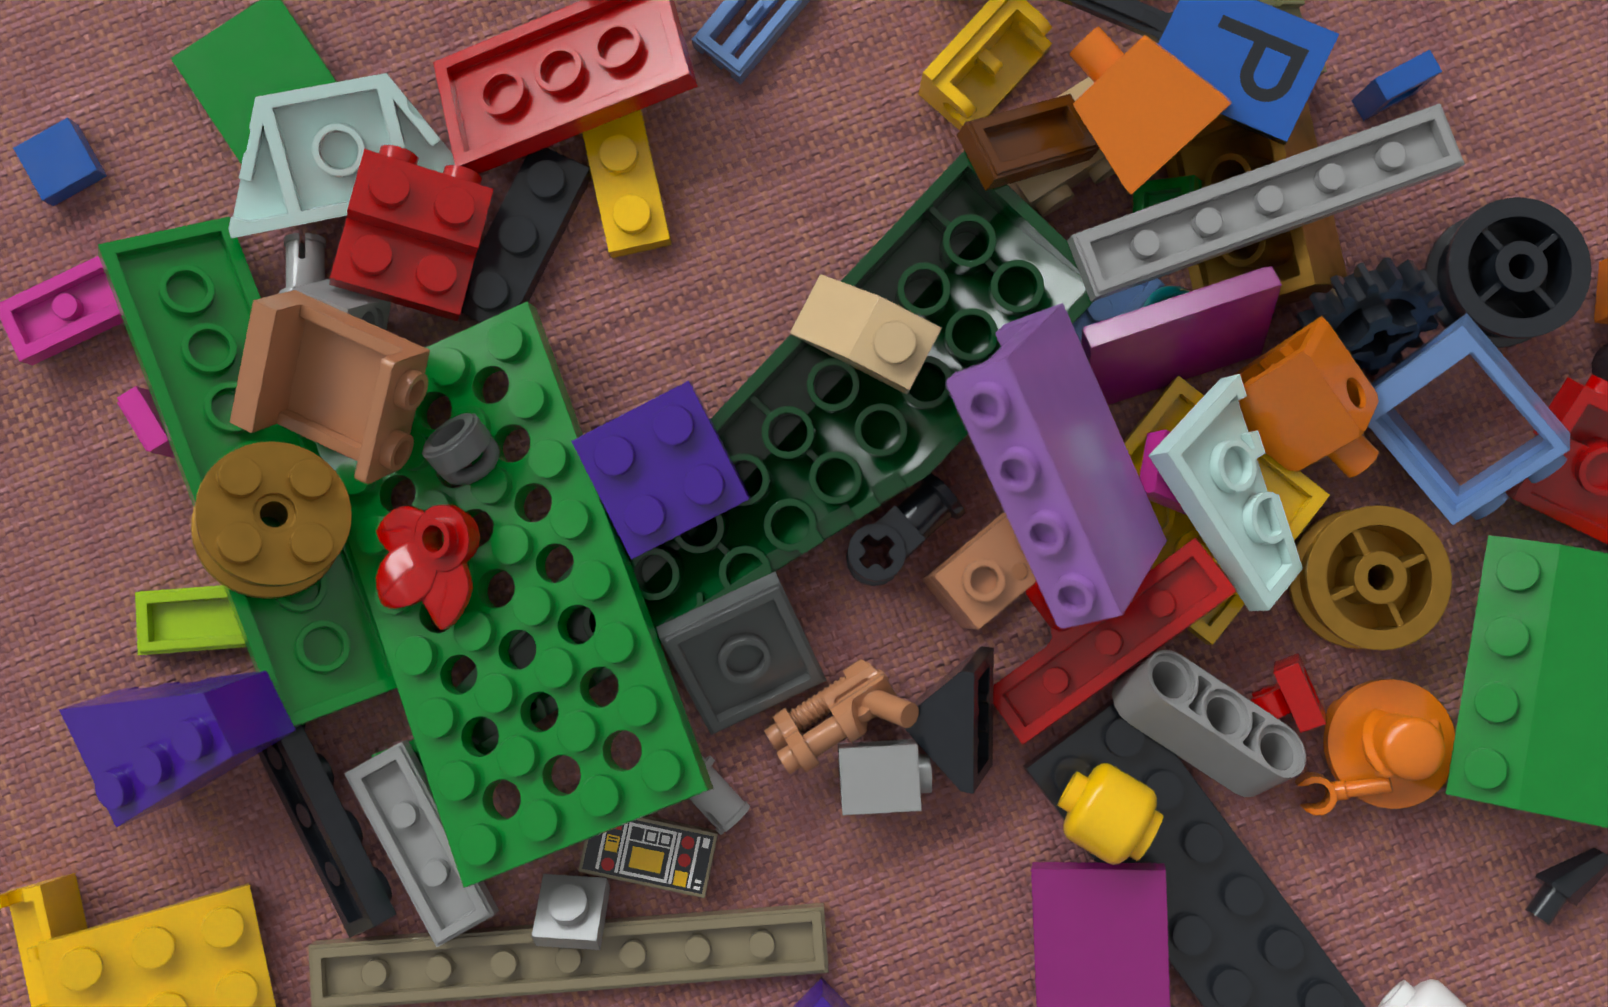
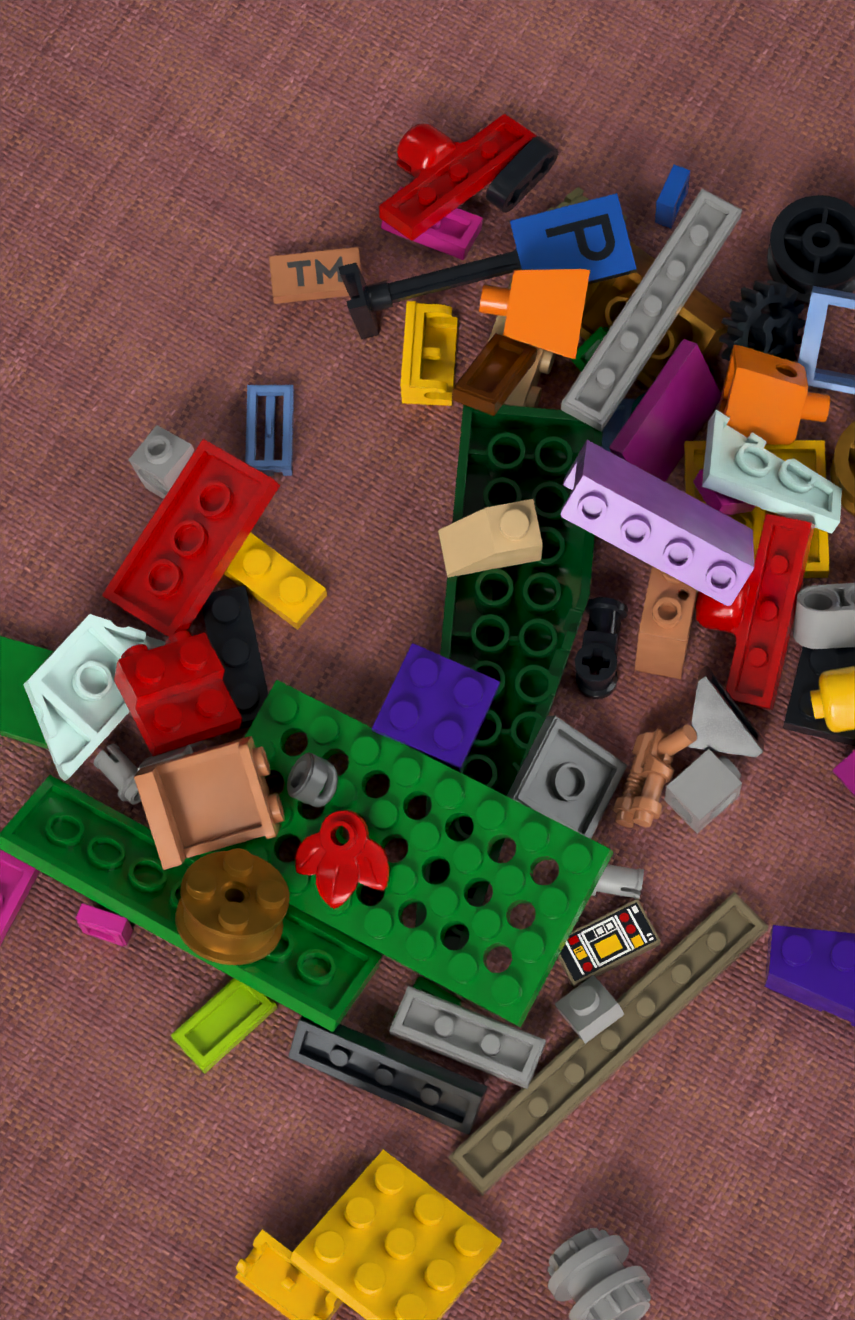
camera: 35 degrees left, 15 degrees down
(173, 738) = (275, 1080): dark purple wedge -> none

